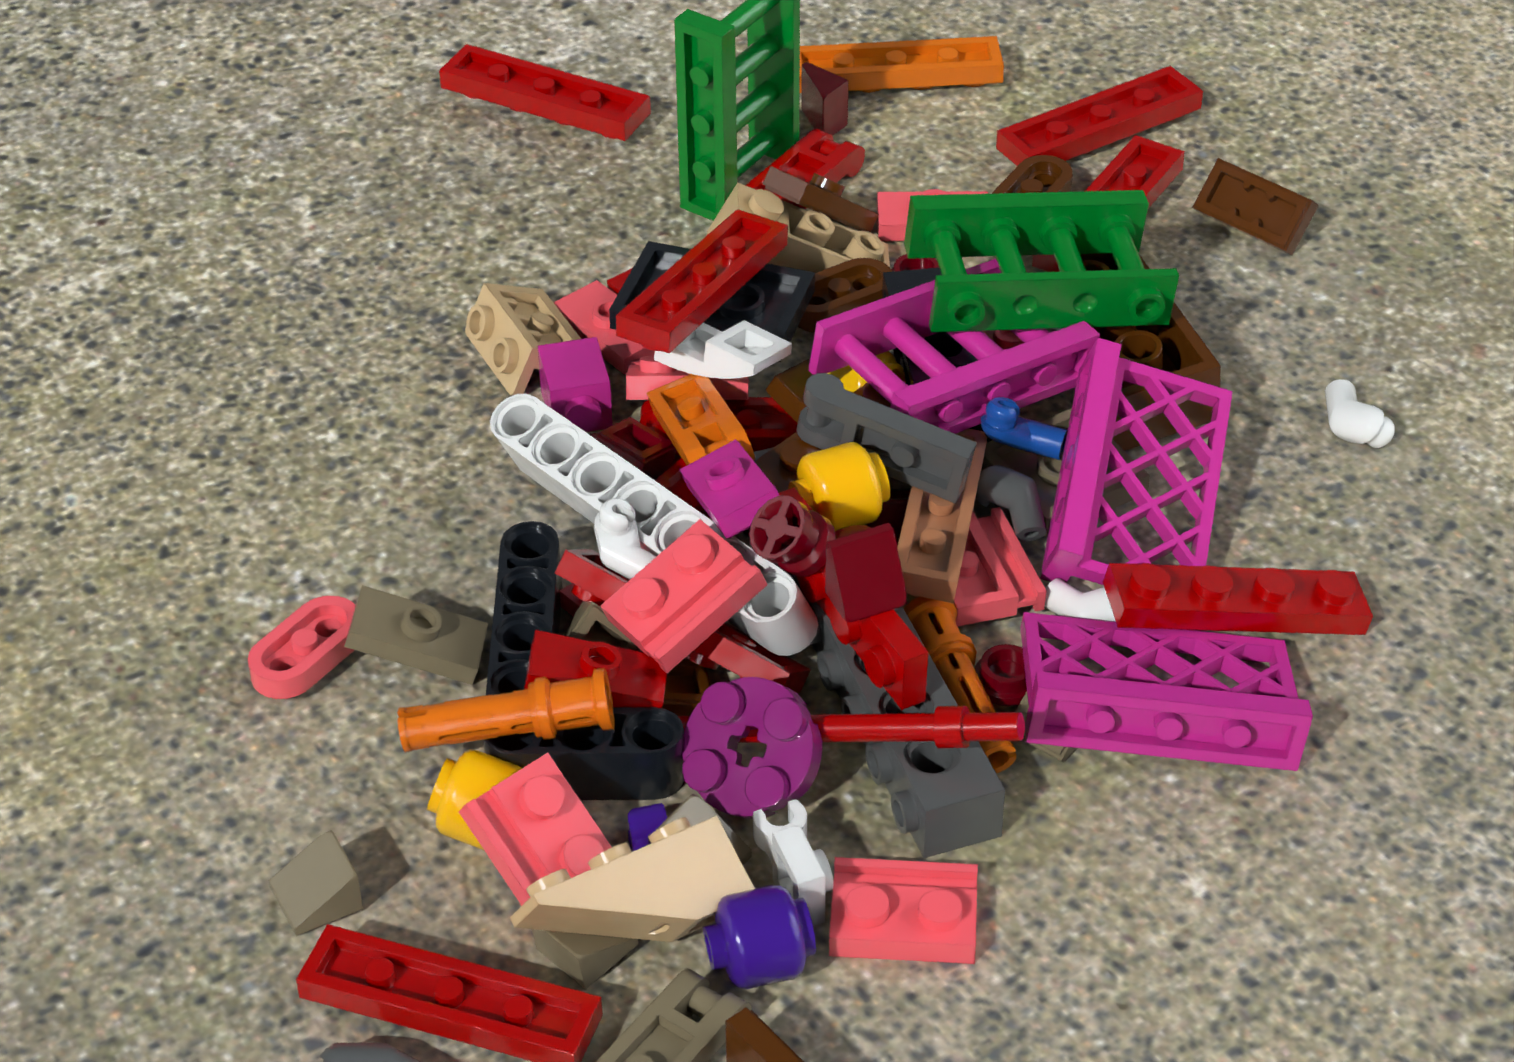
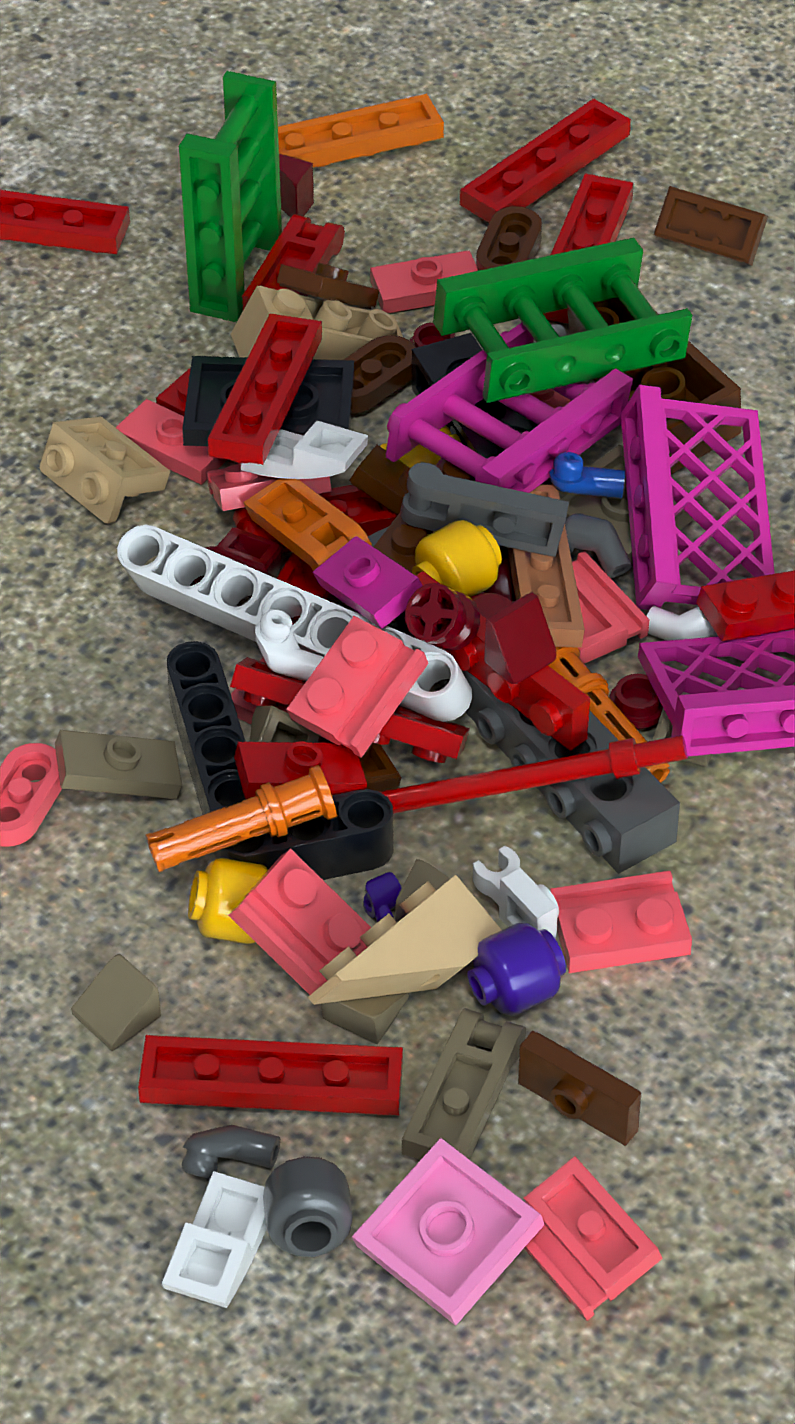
camera: 15 degrees left, 5 degrees up
(576, 382) = (169, 500): dark pink brick -> none
(712, 741) = (474, 836): magenta plate -> none

